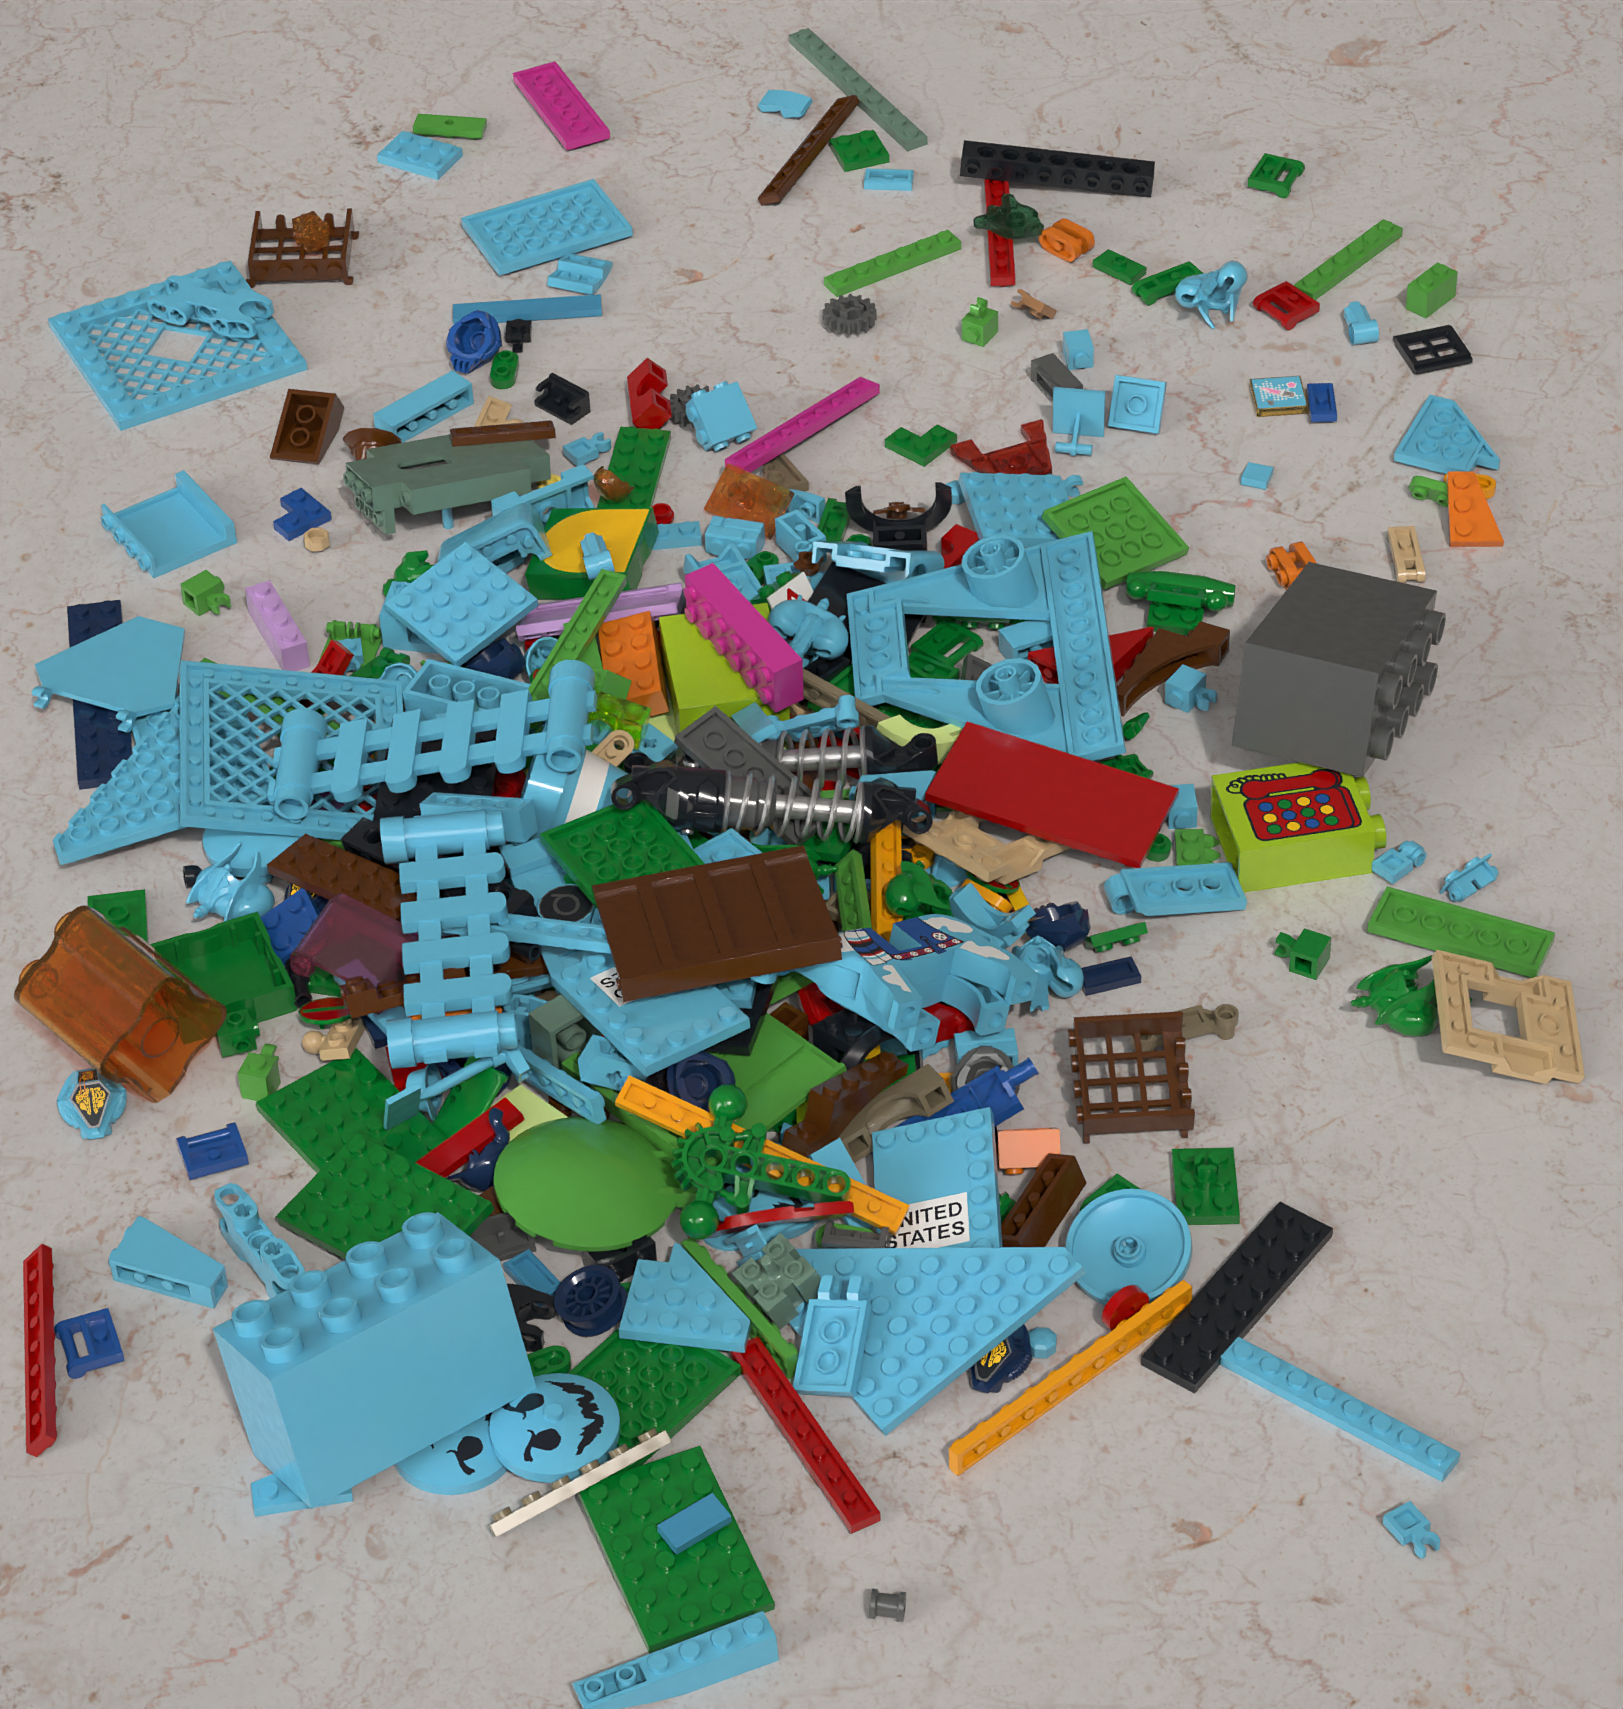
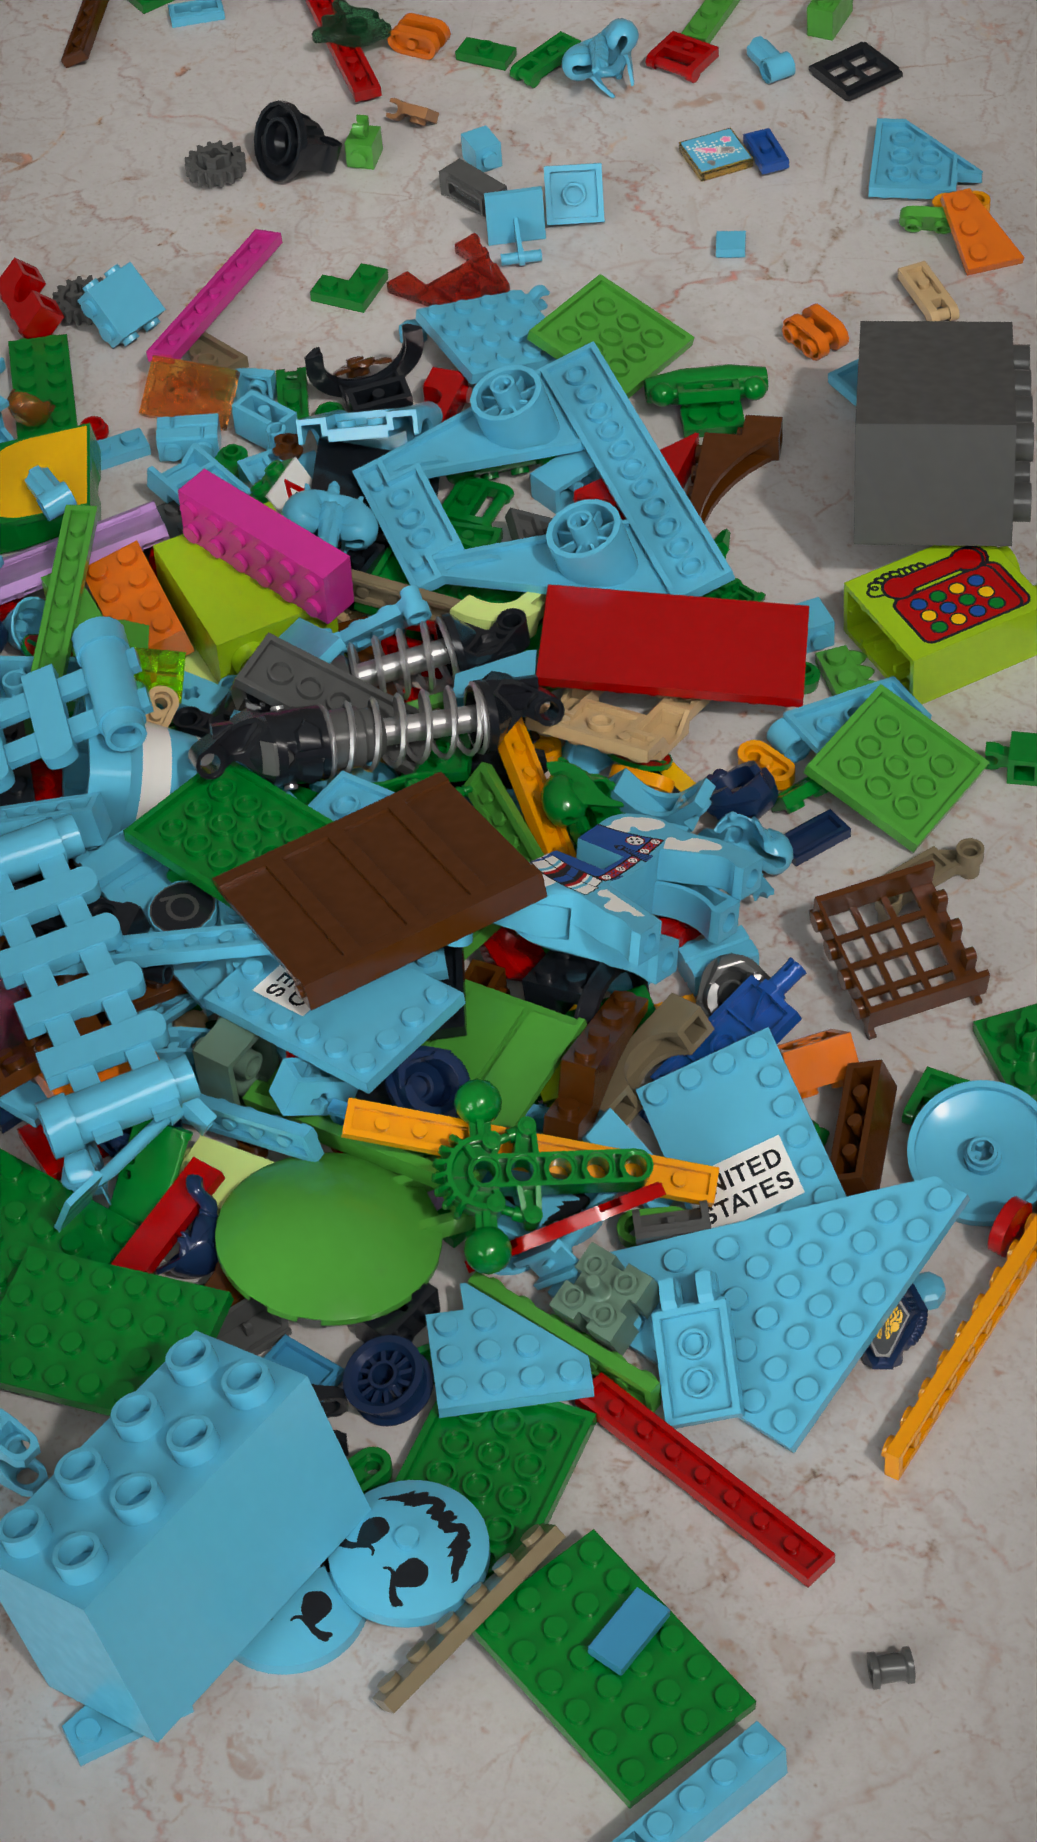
camera: 15 degrees left, 5 degrees up
(892, 263) = (237, 100): bright green plate -> none
(919, 310) = (292, 143): none -> black piece
(1100, 911) = (765, 756): none -> light orange plate
(1187, 689) = (761, 492): medium azure brick -> none
(1196, 935) = (896, 768): none -> bright green plate

